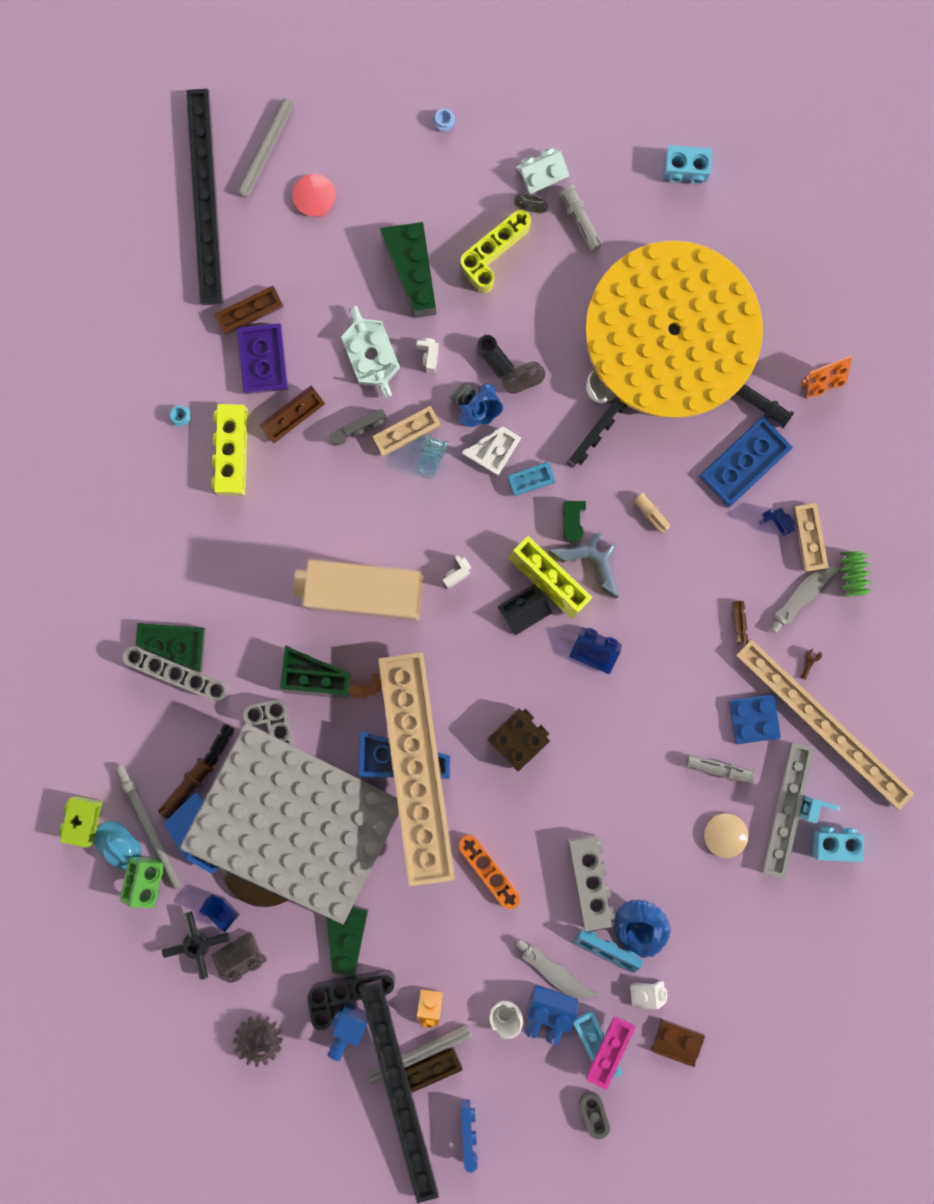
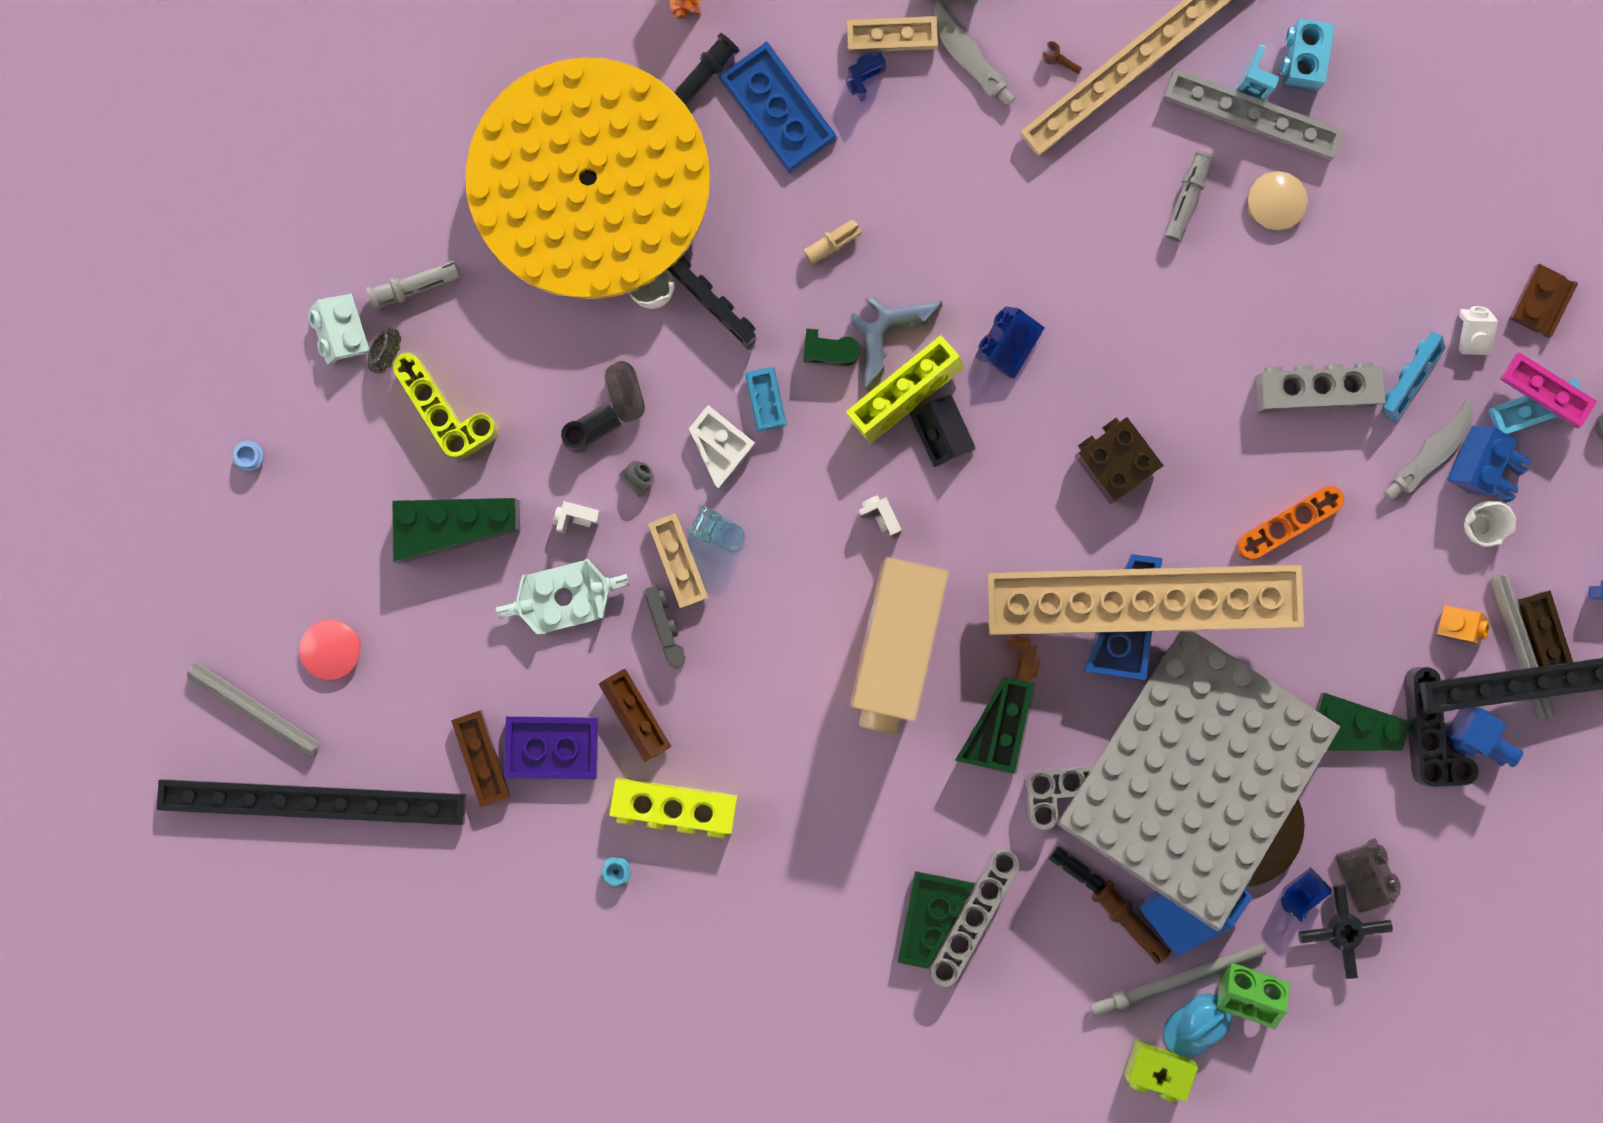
camera: 85 degrees left, 0 degrees up
(249, 1037) = (1474, 871): clear smoke gear -> none
(481, 408) = (658, 452): blue hair -> none
(642, 927) = (1388, 327): blue piece -> none
(687, 157) = (349, 130): medium azure brick -> none
(740, 622) = (994, 144): reddish brown axle -> none
(754, 719) = (1126, 142): blue plate -> none

